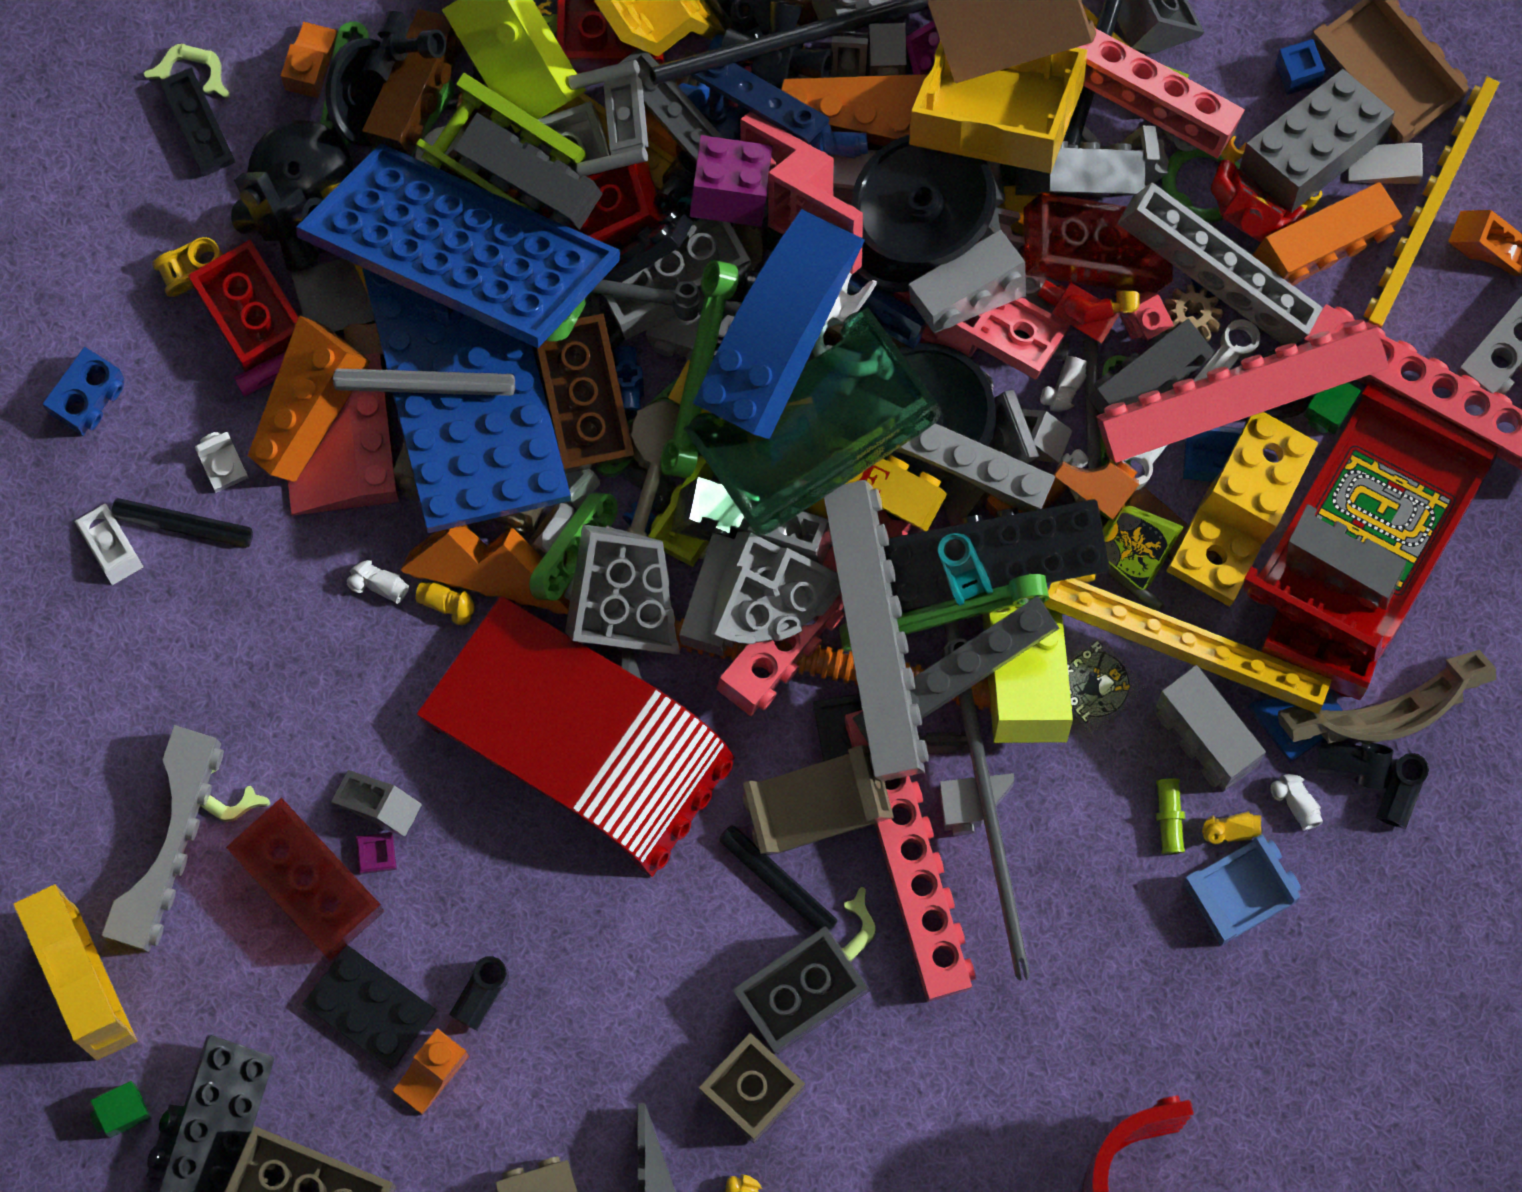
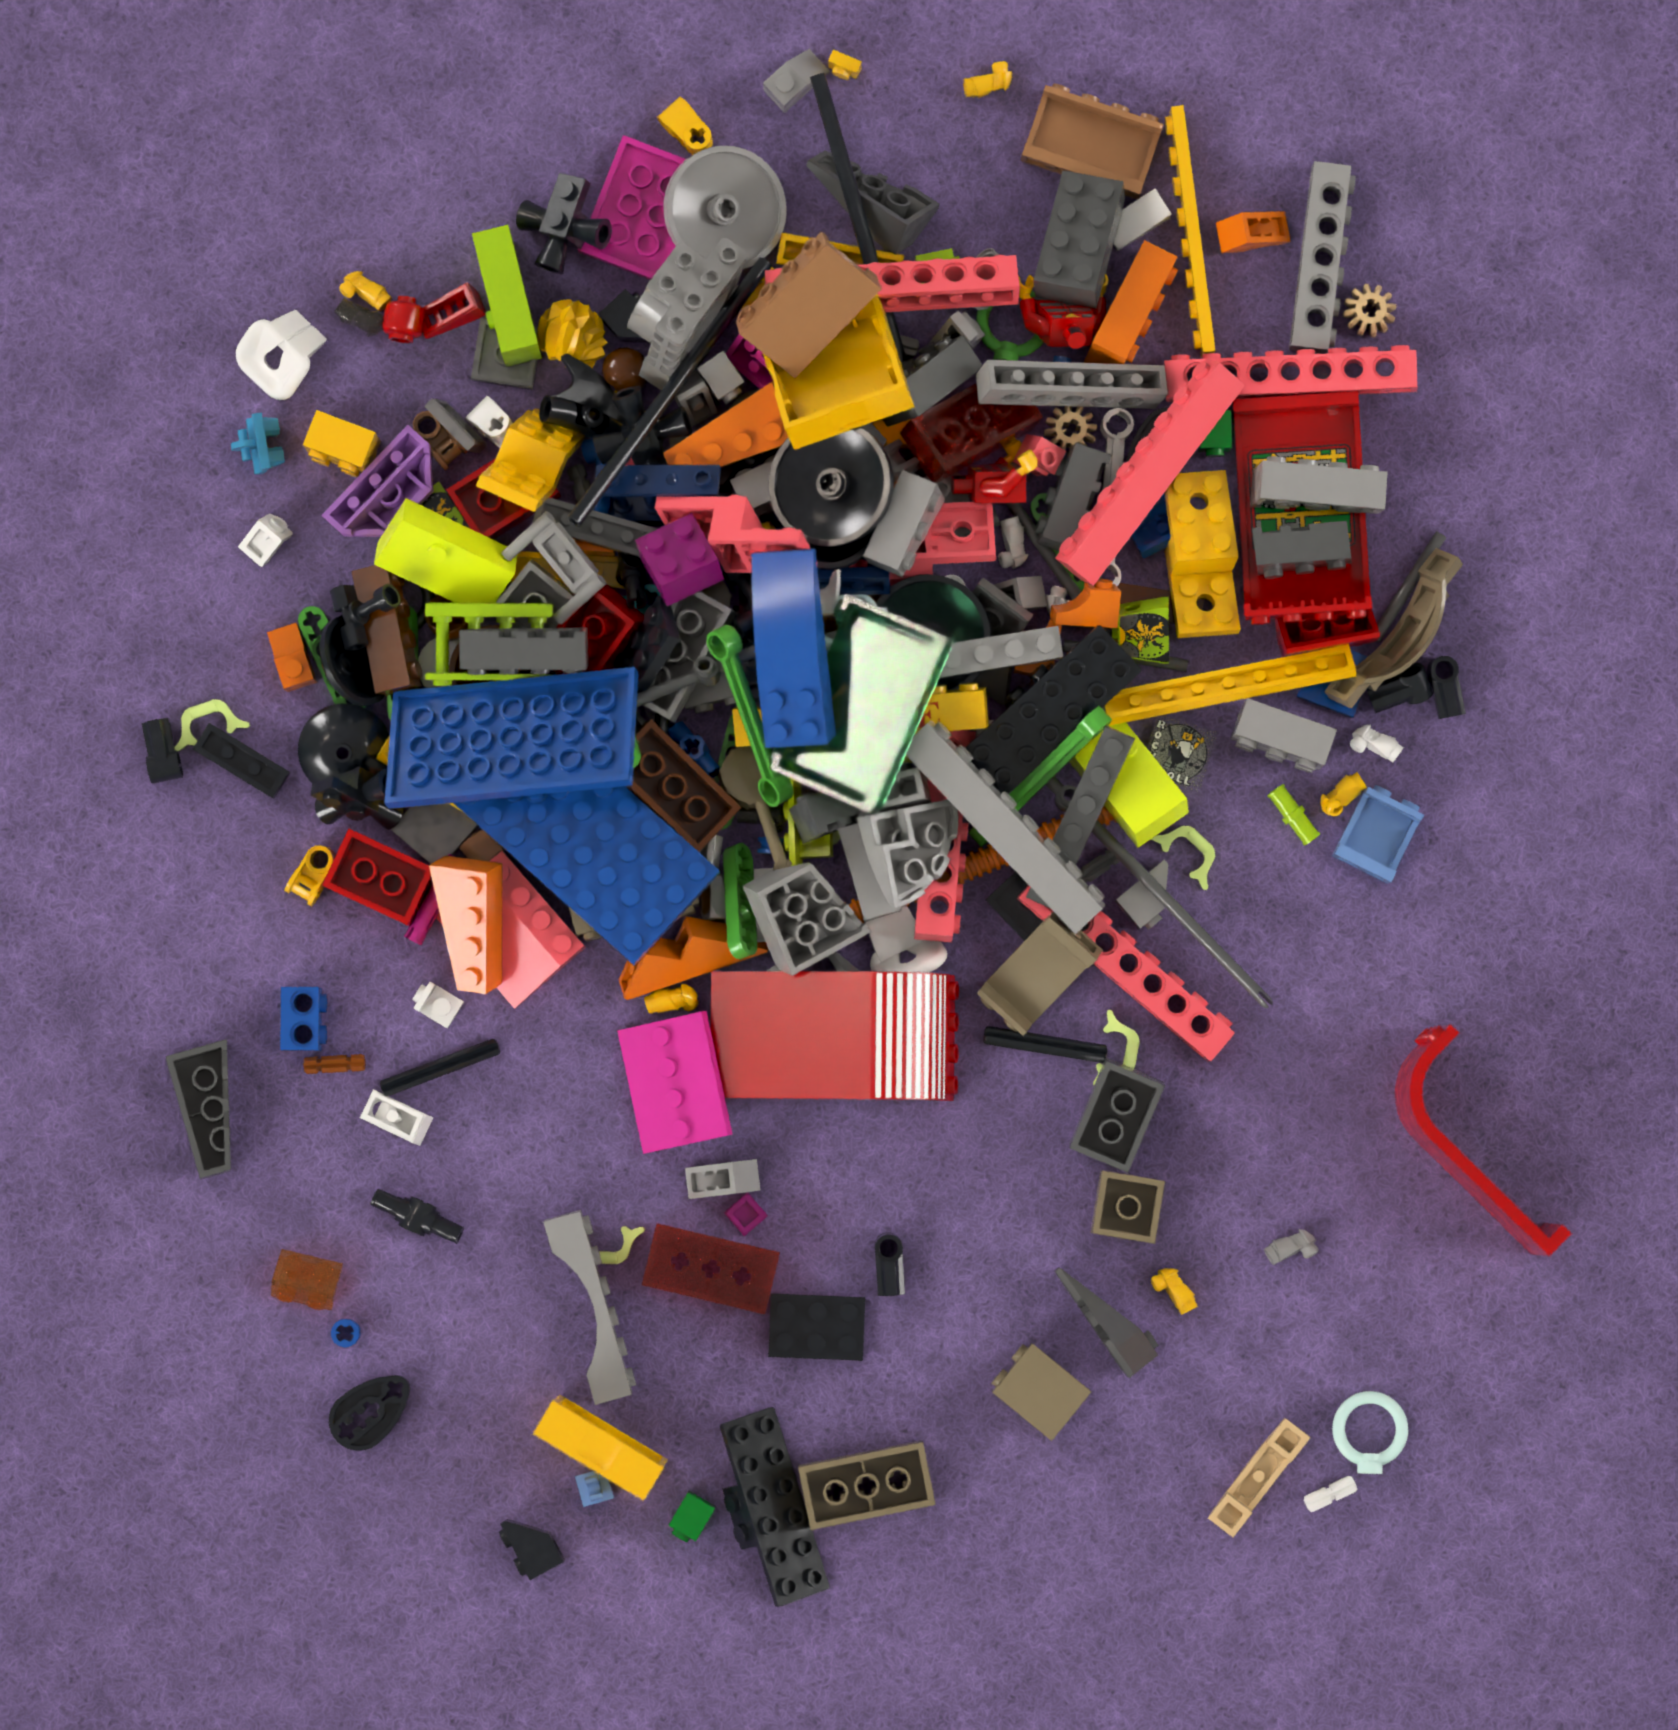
camera: 35 degrees left, 10 degrees up
(45, 1020) = (593, 1488): none -> medium blue tile
(61, 647) = (417, 1216): none -> black pin
(85, 455) = (334, 1063): none -> dark orange axle
(126, 73) = (162, 757): none -> black piece
(377, 580) = (611, 1016): white arm -> none
(393, 679) = (674, 1082): none -> dark pink plate
(424, 382) = (557, 857): light grey axle -> none
(430, 1071) = (892, 1344): orange arch -> none
(697, 679) = (896, 934): none -> white piece
(841, 143) = (739, 476): blue arm -> none
(964, 570) = (1041, 741): teal piece -> none
(1059, 782) = (1199, 842): none -> yellowish green helmet
(1300, 66) = (1028, 186): blue panel -> none
(1400, 512) = (1319, 486): none -> light grey wedge
(1421, 674) = (1407, 586): none -> dark grey bar

